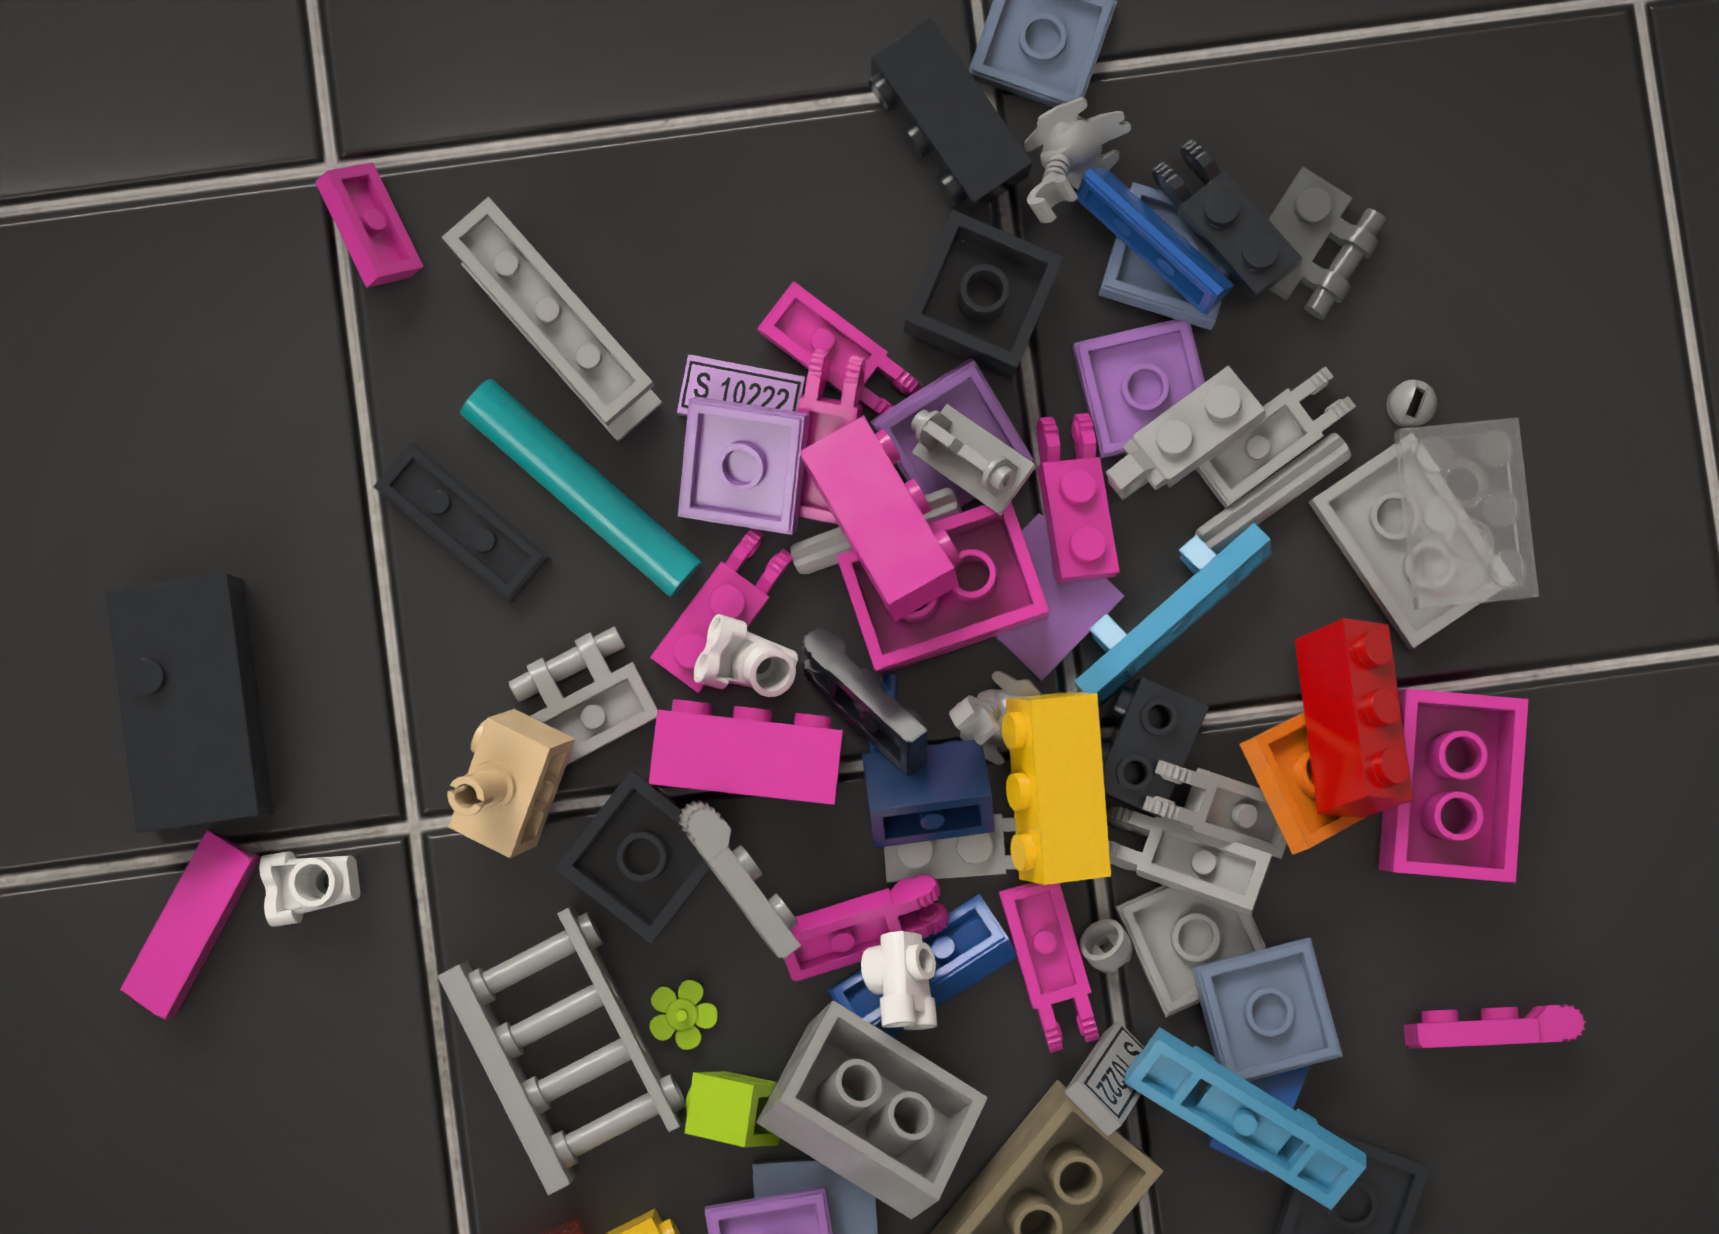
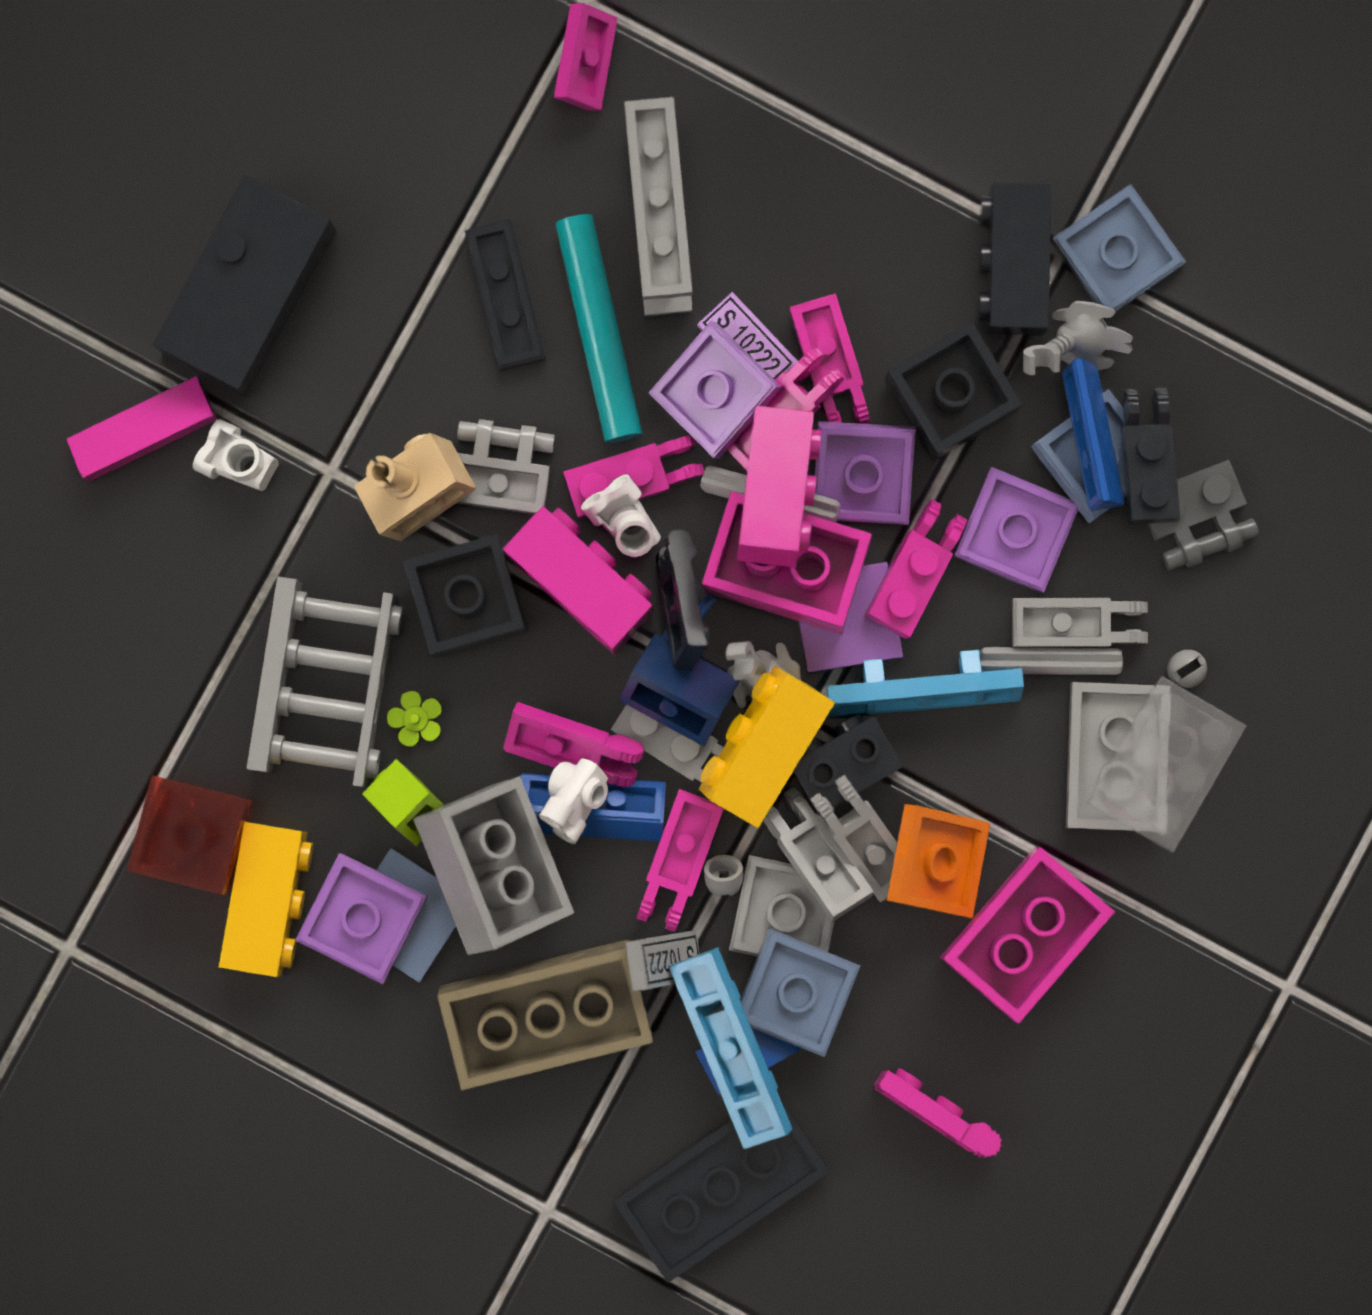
camera: 45 degrees right, 0 degrees up
(737, 874) = (517, 648): light grey hinge -> none
(970, 456) = (865, 489): light grey hinge -> none
(1187, 434) = (1019, 579): light grey hinge -> none
(1353, 719) = (991, 842): red brick -> none

